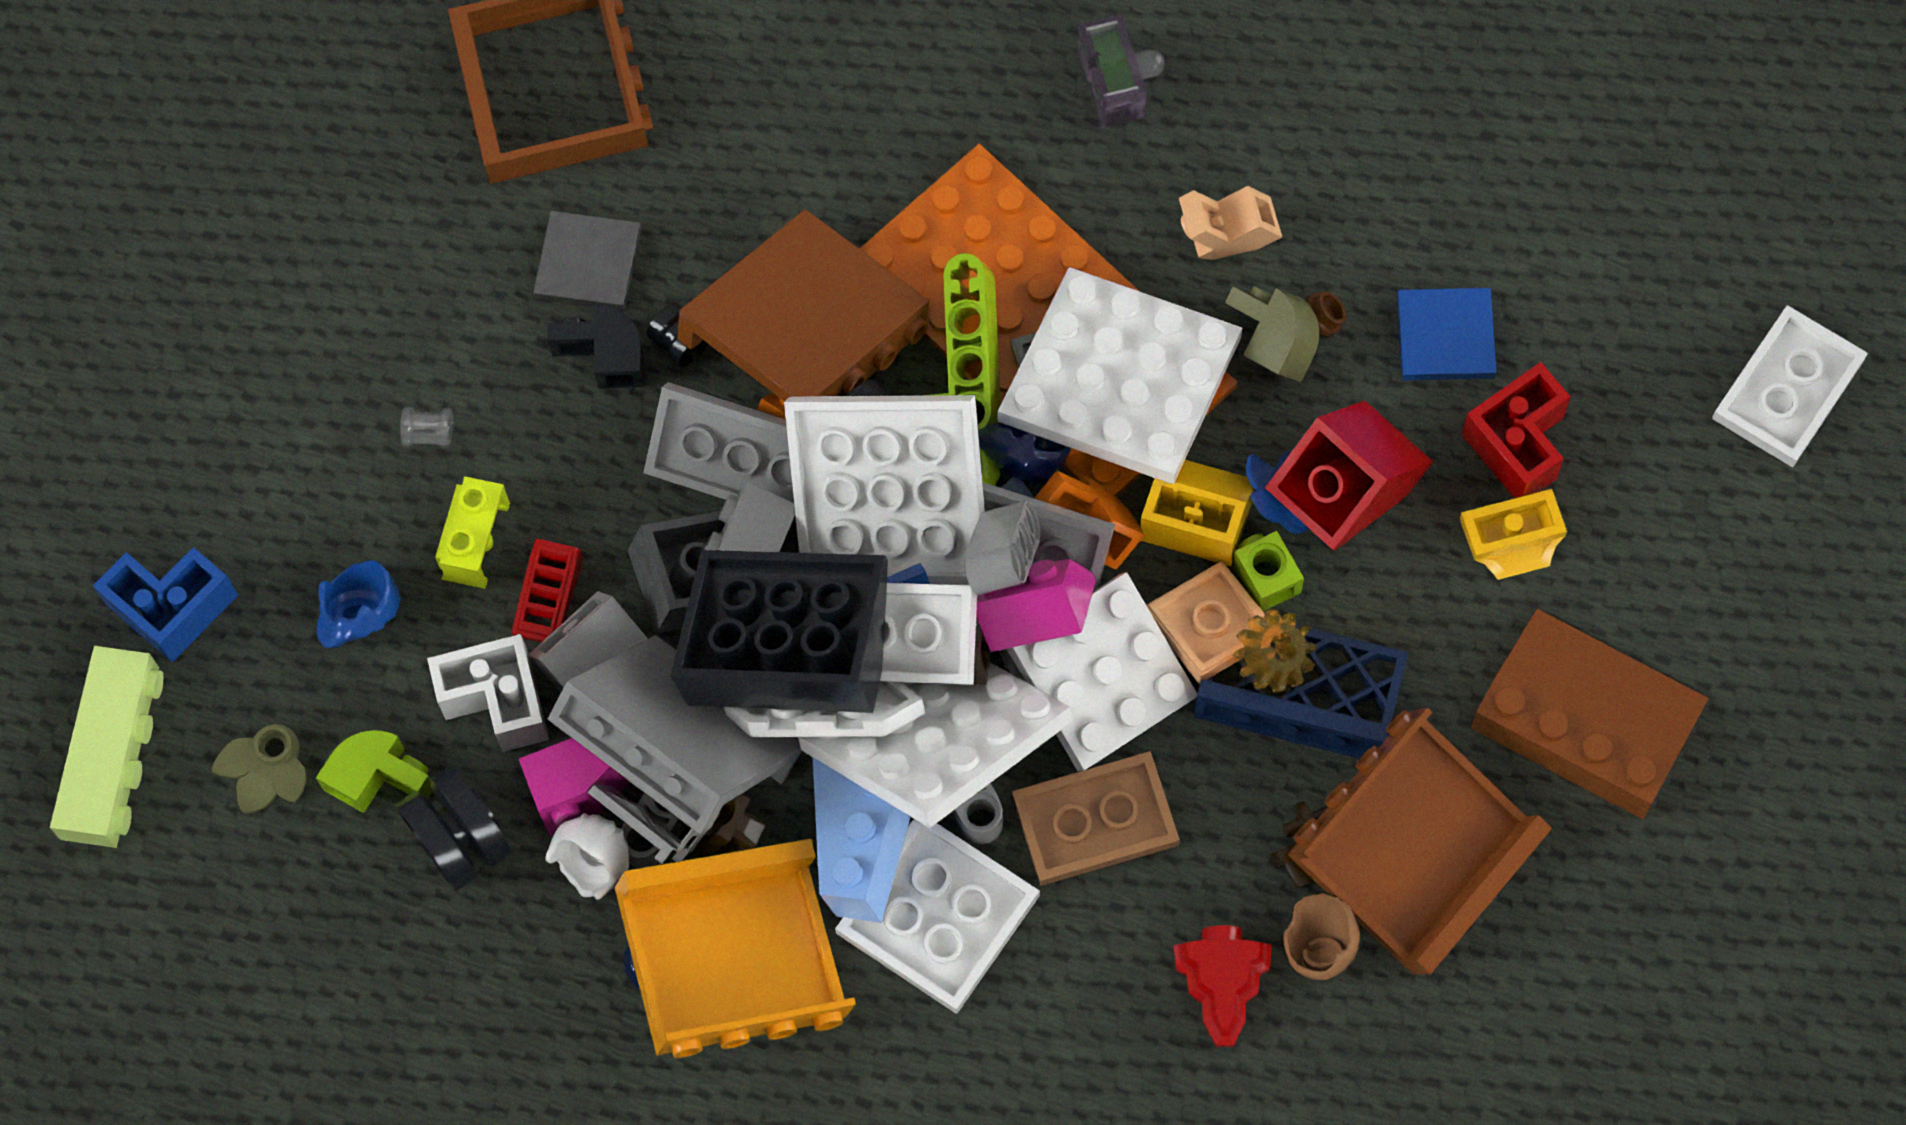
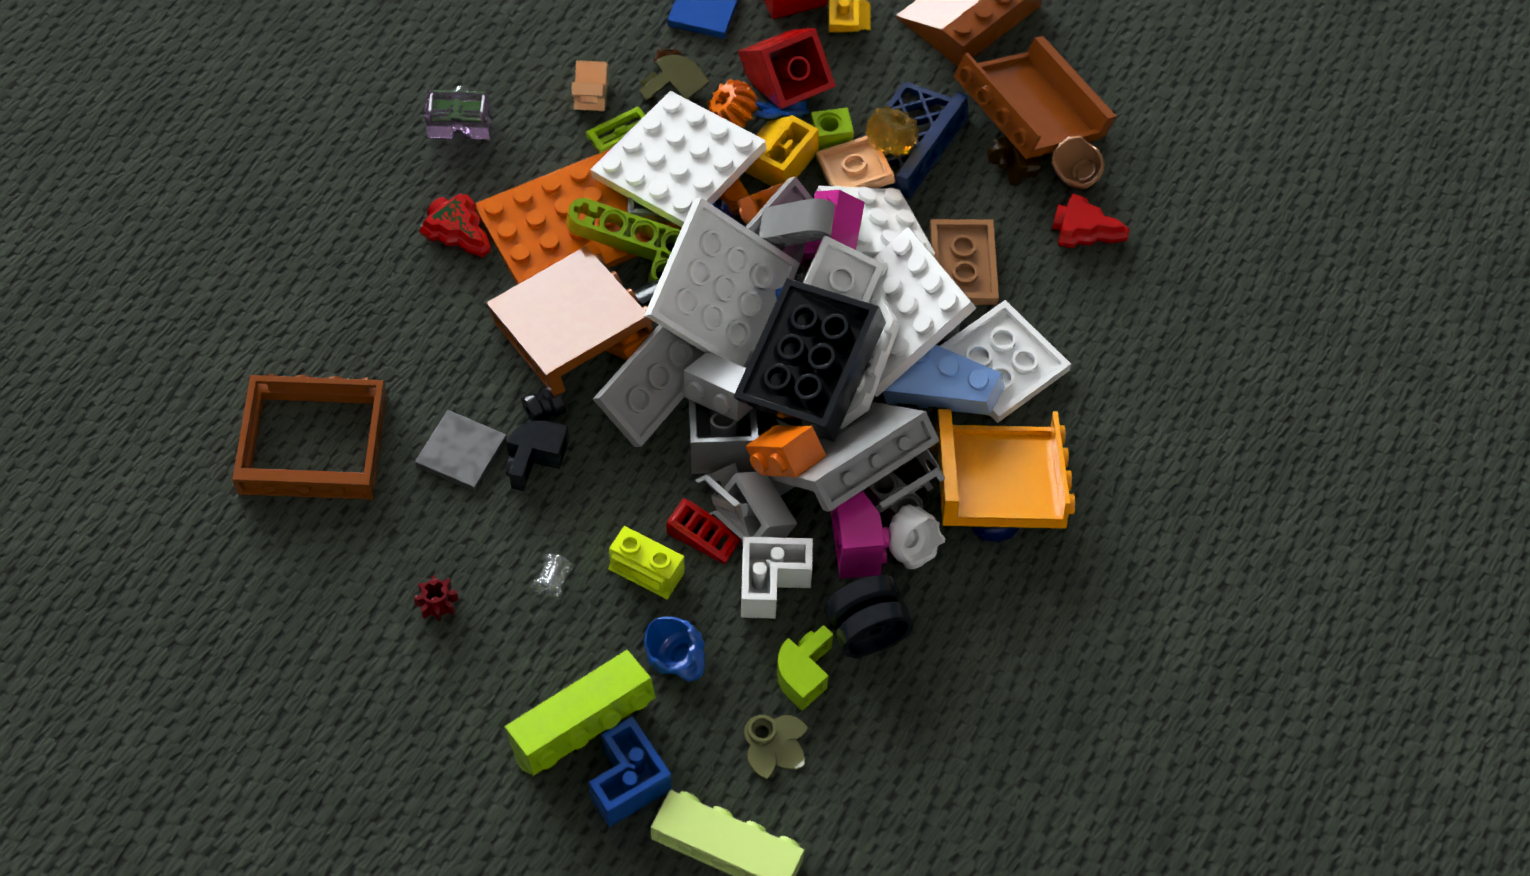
camera: 80 degrees left, 10 degrees down
(214, 515) = (579, 713): none -> lime slope
(362, 312) = (436, 606): none -> dark red gear
(629, 598) = (728, 503): none -> light grey piece
(642, 644) = (785, 451): none -> orange brick
(935, 134) = (456, 224): none -> red rock
(1143, 267) = (612, 139): none -> lime tile
(1256, 421) = (734, 102): none -> orange gear

